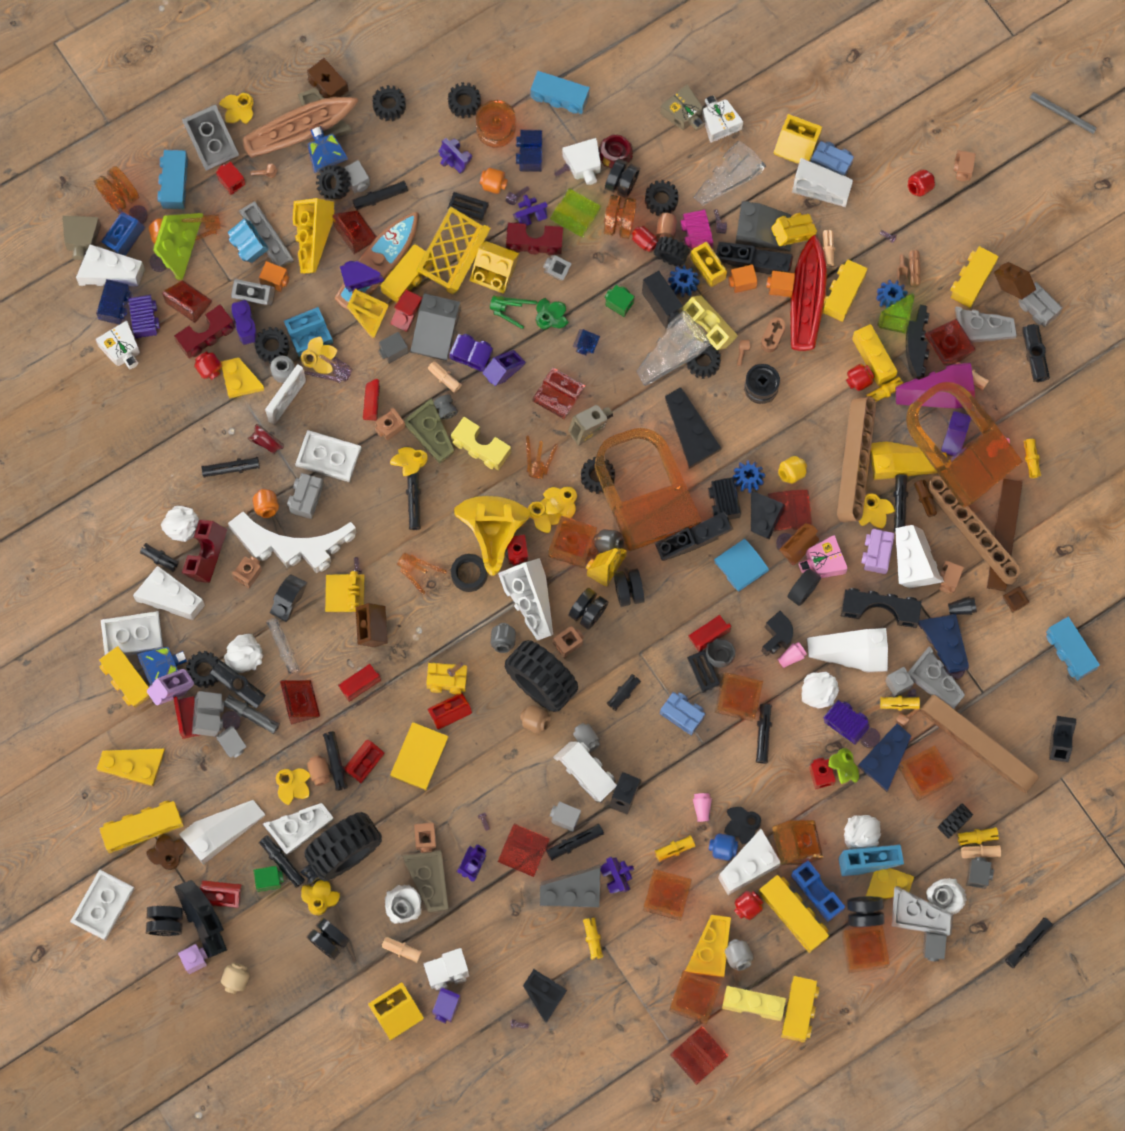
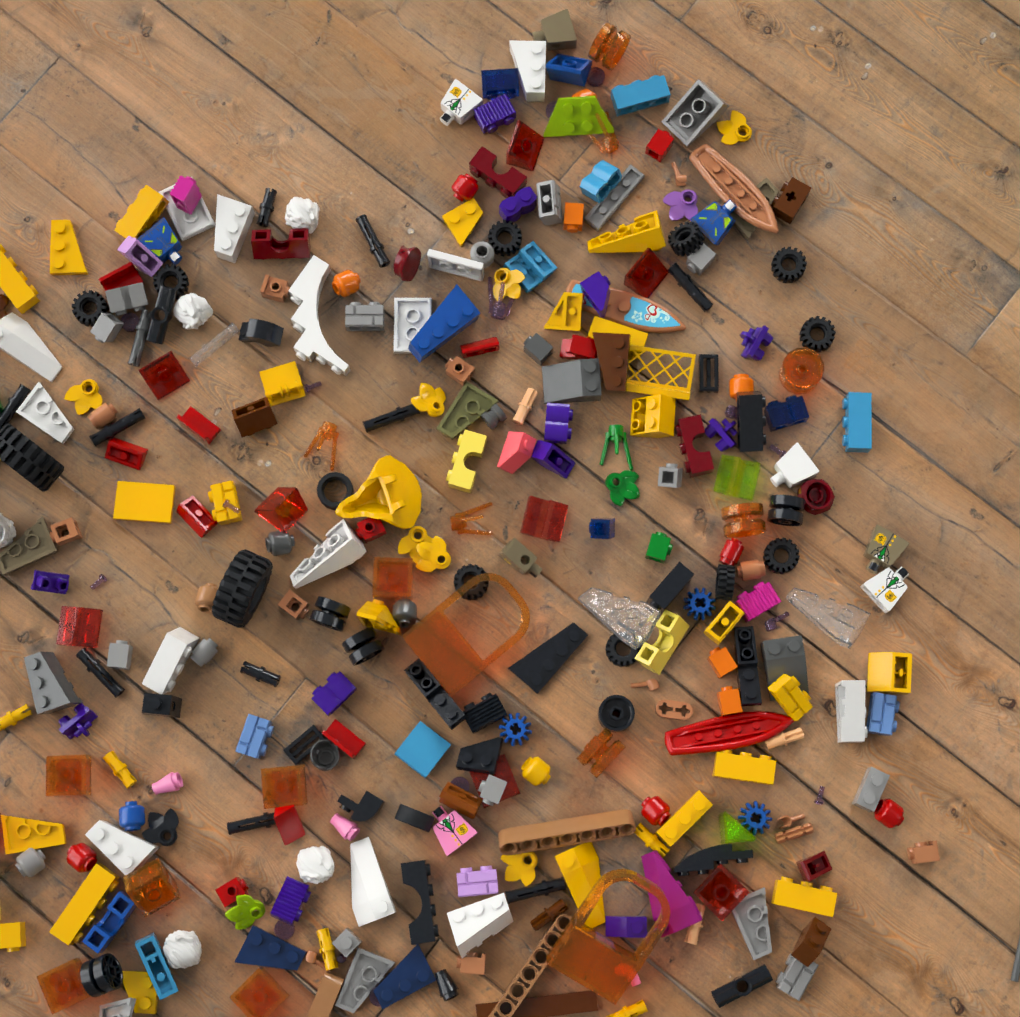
camera: 75 degrees right, 5 degrees up
(123, 623) = (186, 194): none -> dark pink brick
(200, 743) = (82, 301): none -> black tyre
(296, 180) = (679, 206): none -> medium lavender plate
(338, 419) = (445, 323): none -> blue wedge
(428, 278) = (613, 358): none -> reddish brown wing
(469, 624) = (282, 508): none -> clear red slope
(486, 395) = (516, 451): none -> coral slope
(529, 181) = (750, 421): none -> black brick
(664, 629) = (334, 693): none -> dark purple brick
(775, 701) = (288, 823): none -> red slope
(794, 405) = (600, 752): none -> clear orange wheel
(799, 509) = (492, 790): none -> light grey brick
(896, 190) = (870, 789): none -> light grey brick
(949, 261) = (814, 866): none -> dark red slope

